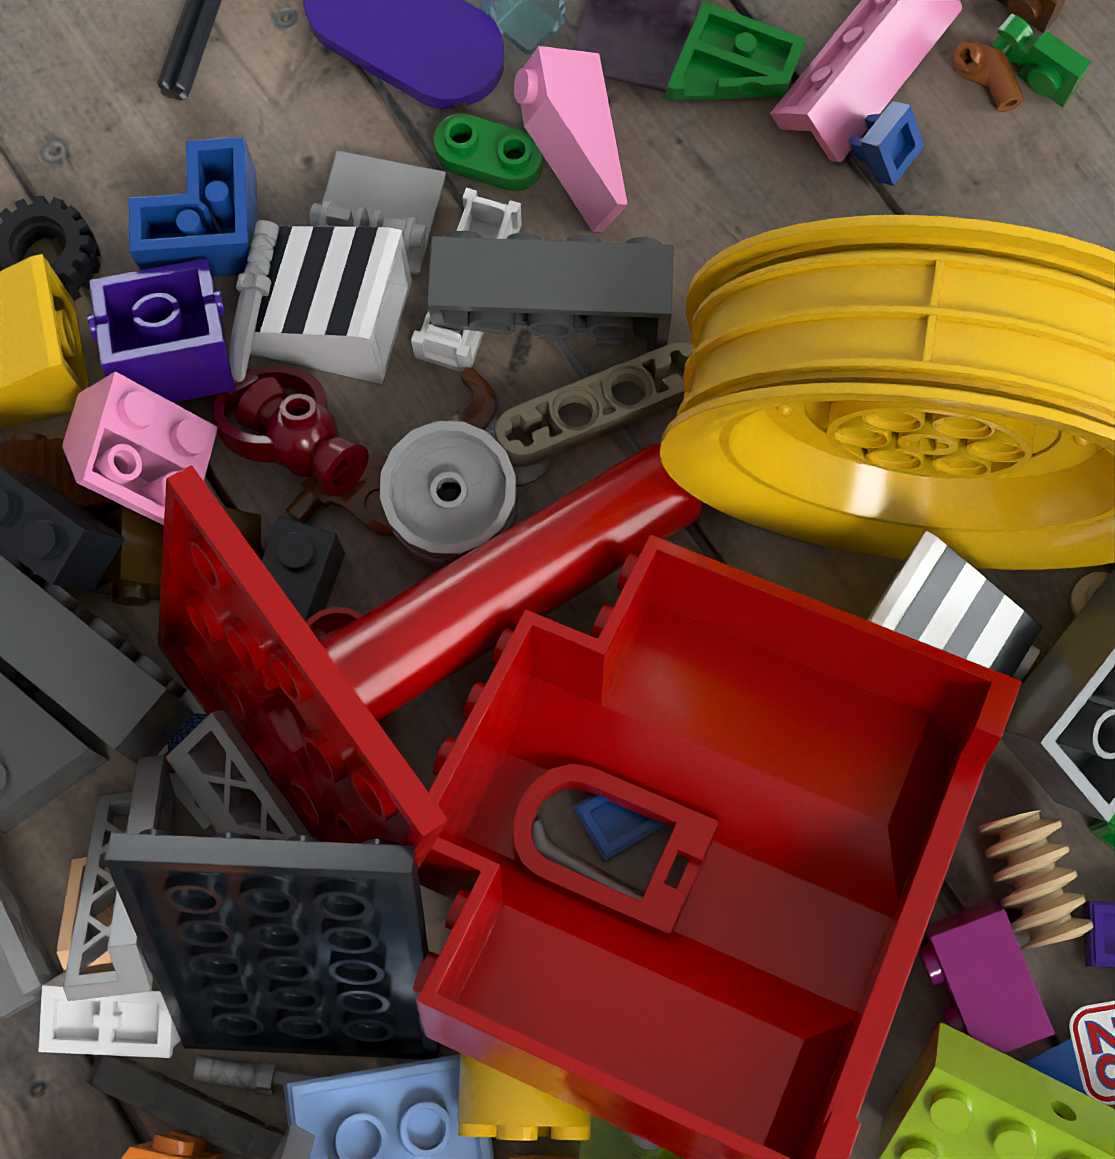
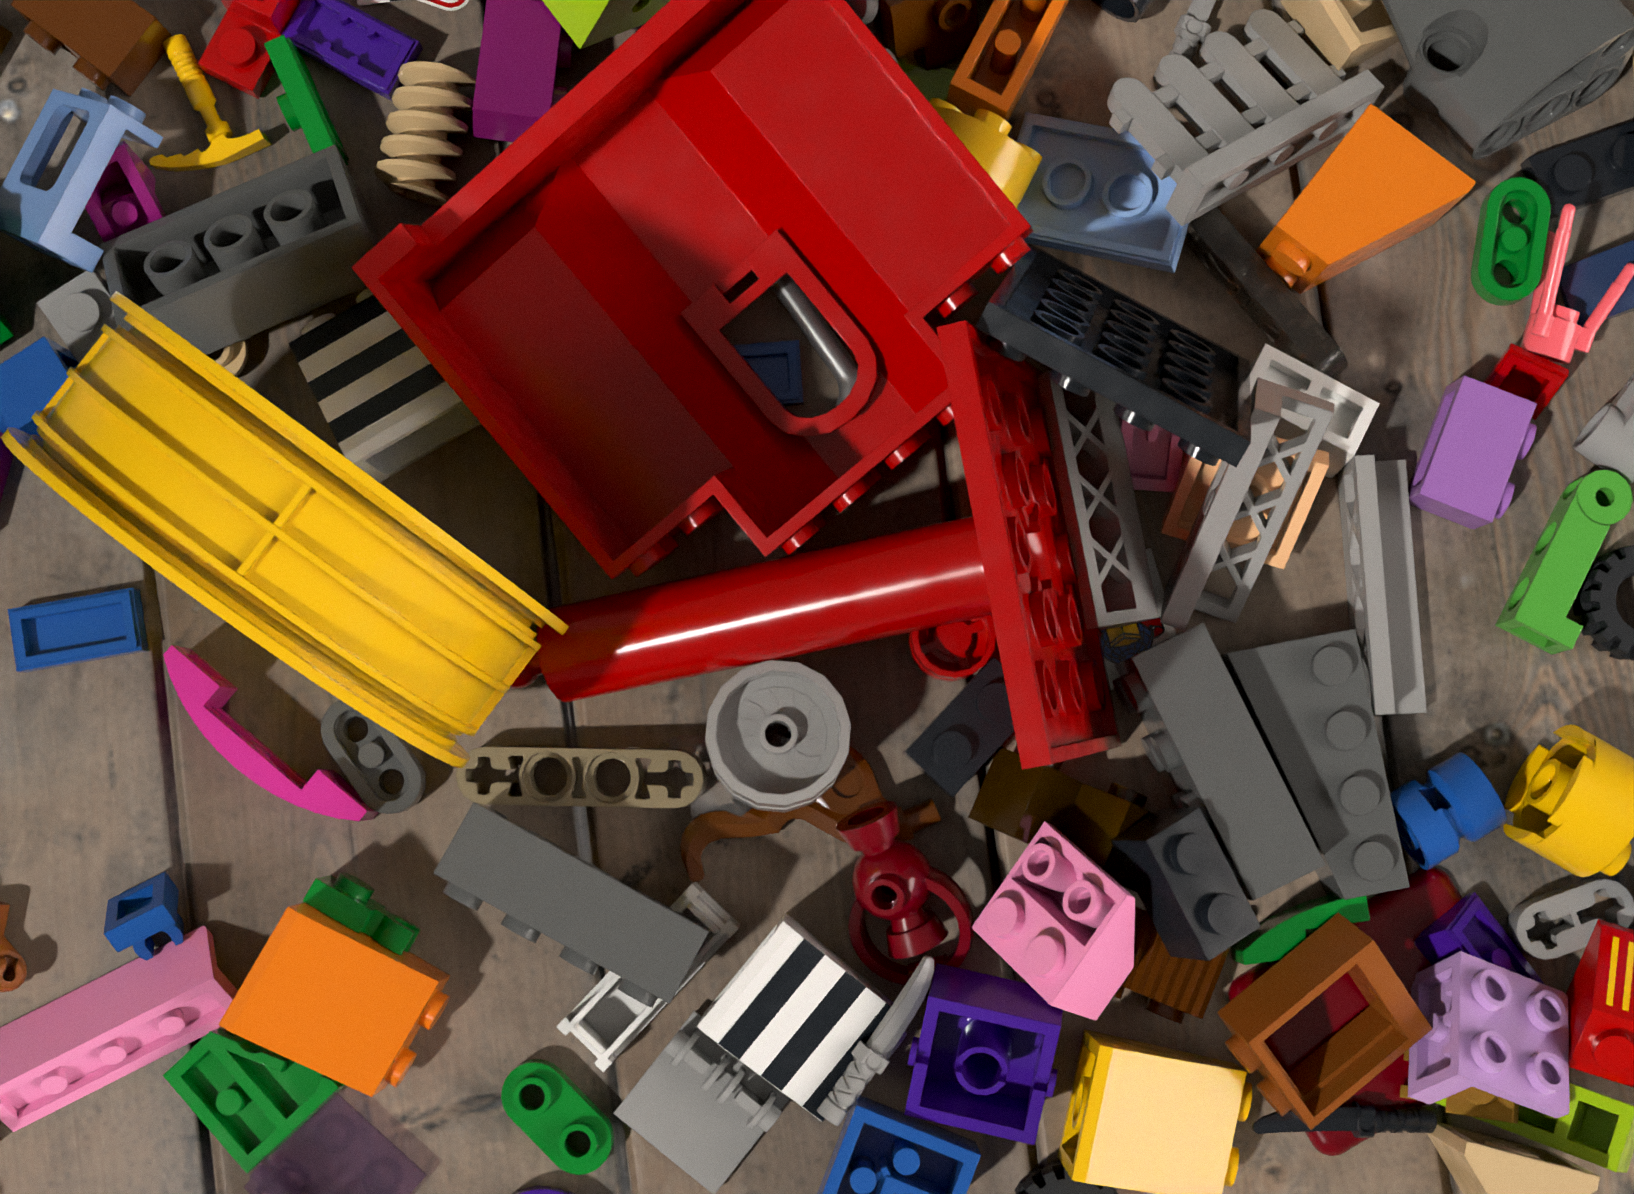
camera: 150 degrees left, 10 degrees up
(242, 1074) = (1196, 302): light grey piece -> none
(573, 128) = (459, 1091): bright pink slope -> none
(703, 146) = (337, 1001): none -> orange slope
(724, 220) = (350, 903): none -> green plate

